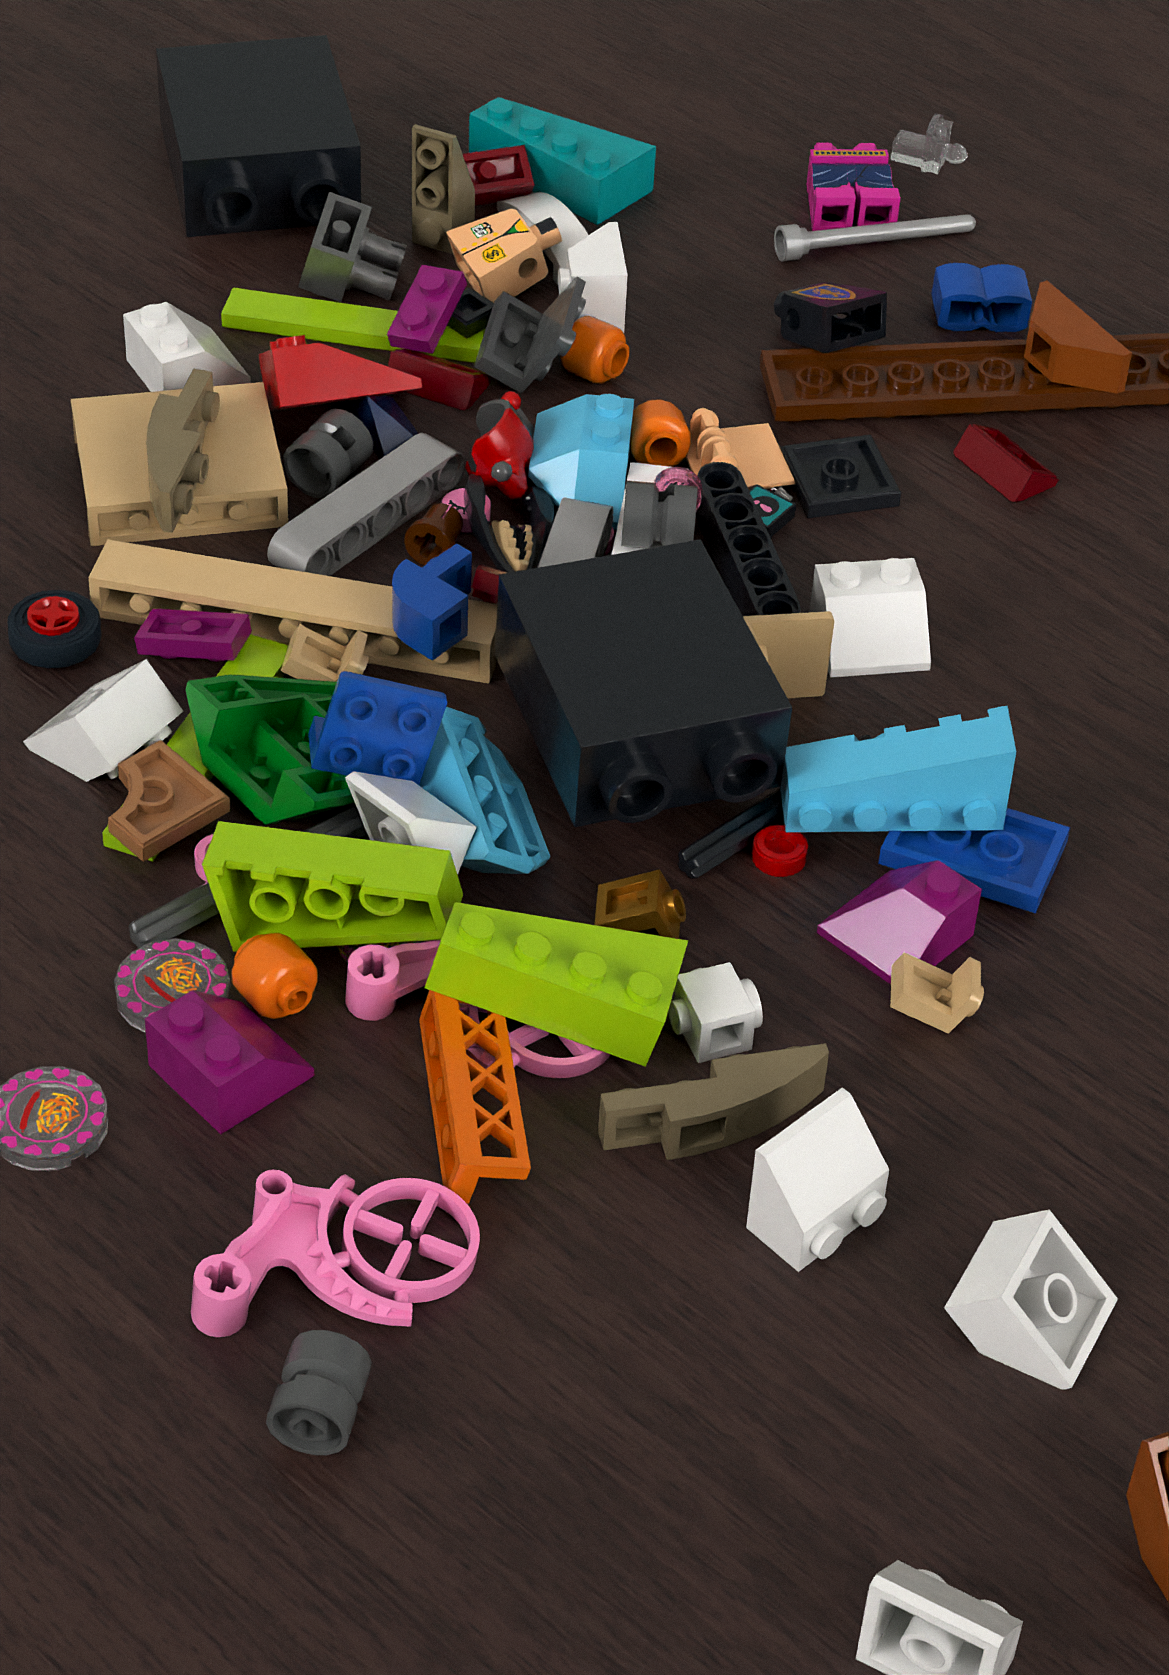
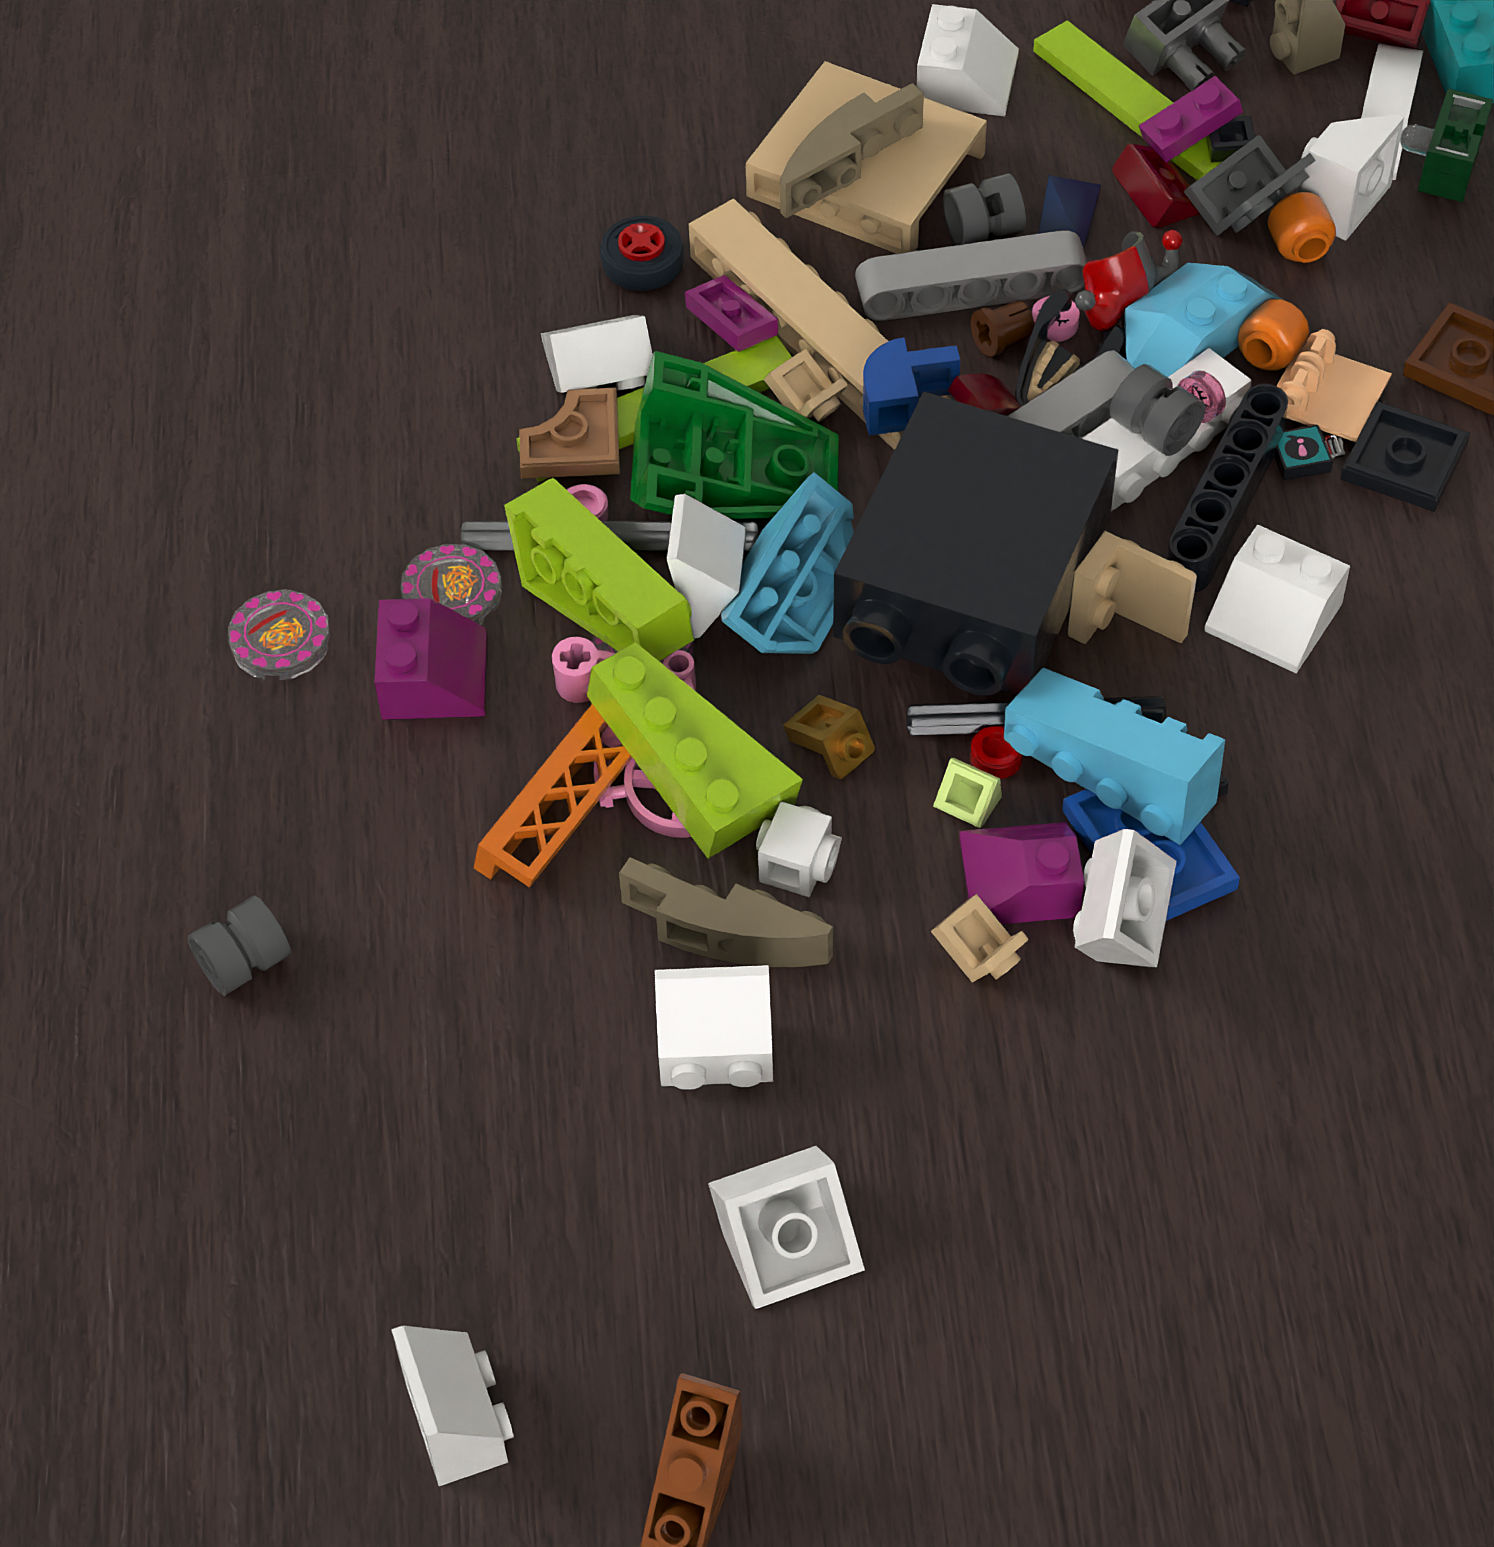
camera: 45 degrees right, 10 degrees up
(274, 975) = (513, 621): orange head -> none
(292, 1233) = (340, 823): bright pink piece -> none
(320, 374) = (1038, 138): red slope -> none
(376, 728) = (737, 472): blue bracket -> none
(503, 252) = (1310, 95): light nougat torso -> none
(650, 242) = (1451, 146): none -> dark green piece
(795, 890) = (968, 793): none -> yellowish green slope
(1023, 884) = (1124, 900): none -> white slope

